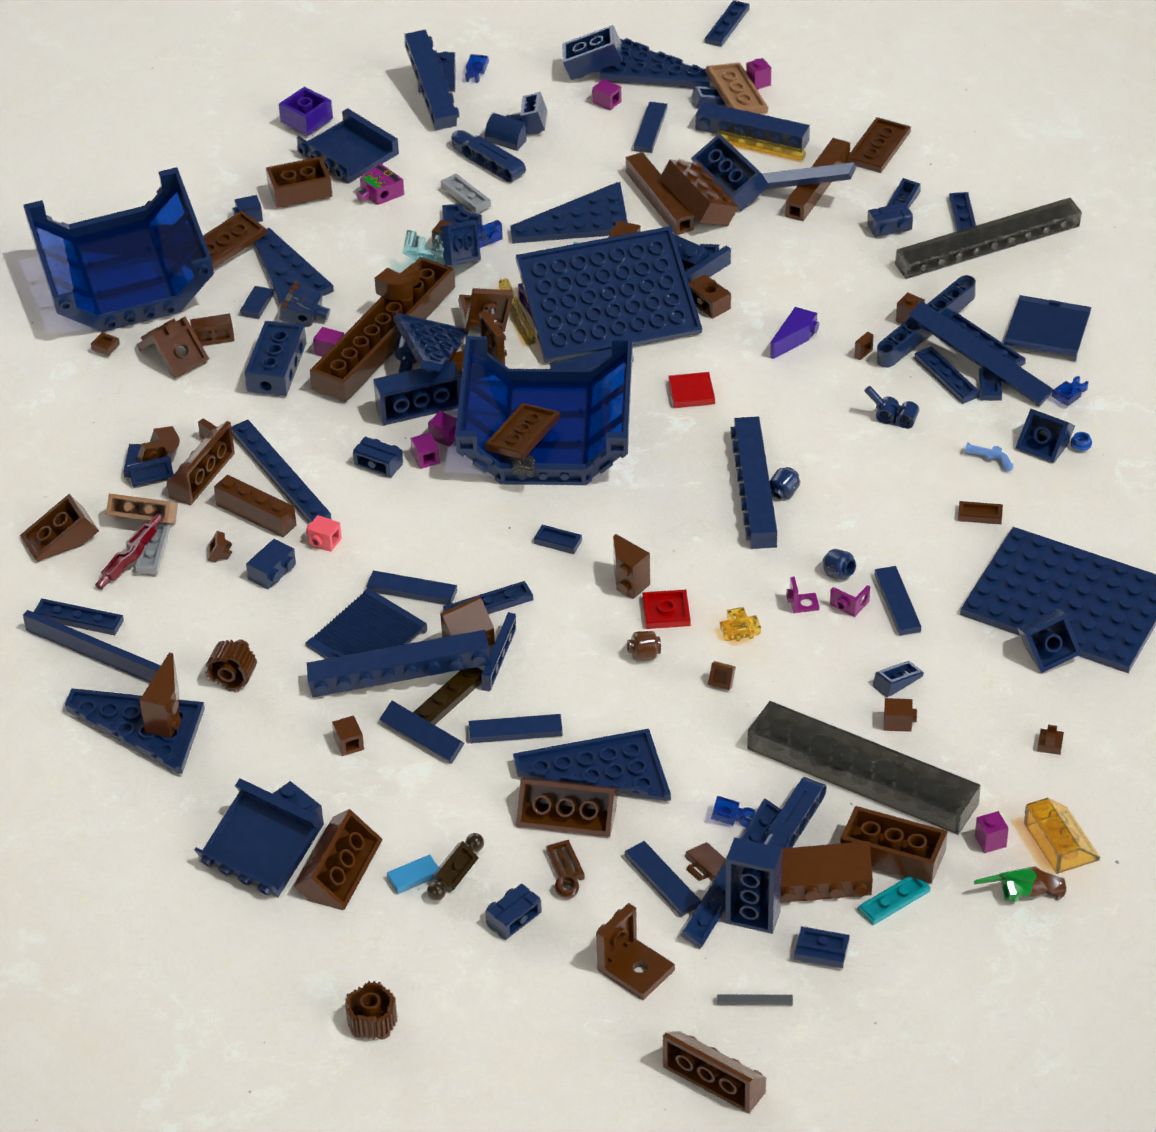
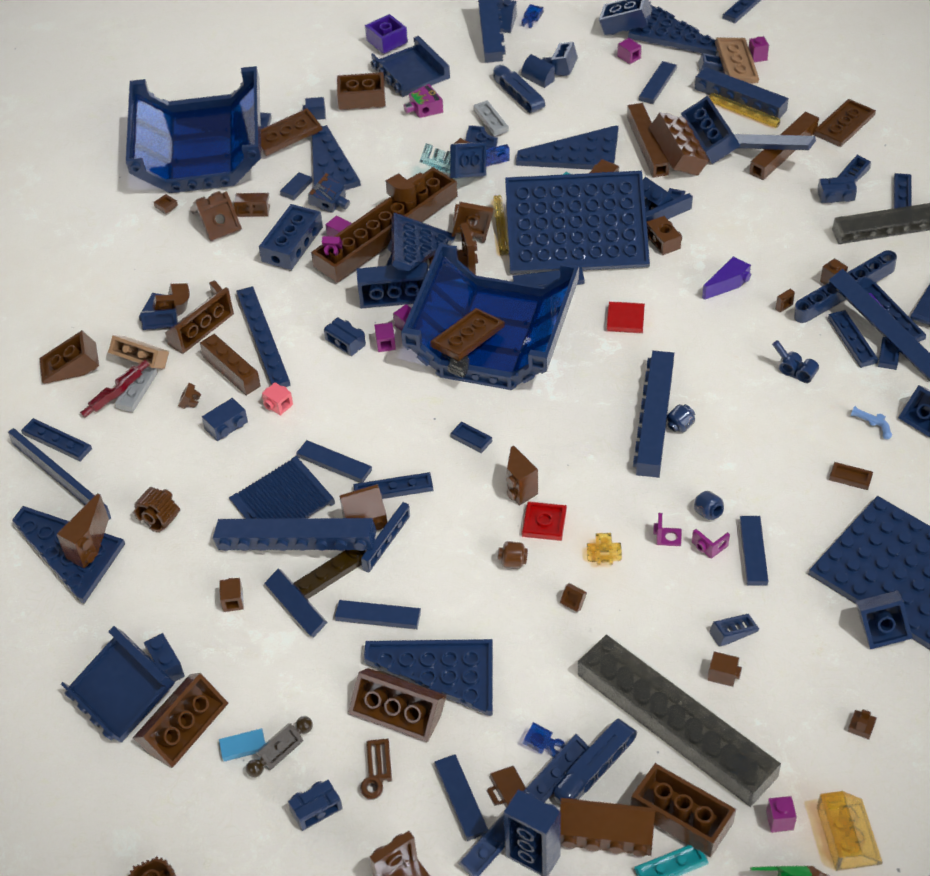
camera: 15 degrees right, 5 degrees up
(334, 355) = (331, 243): none -> magenta tile

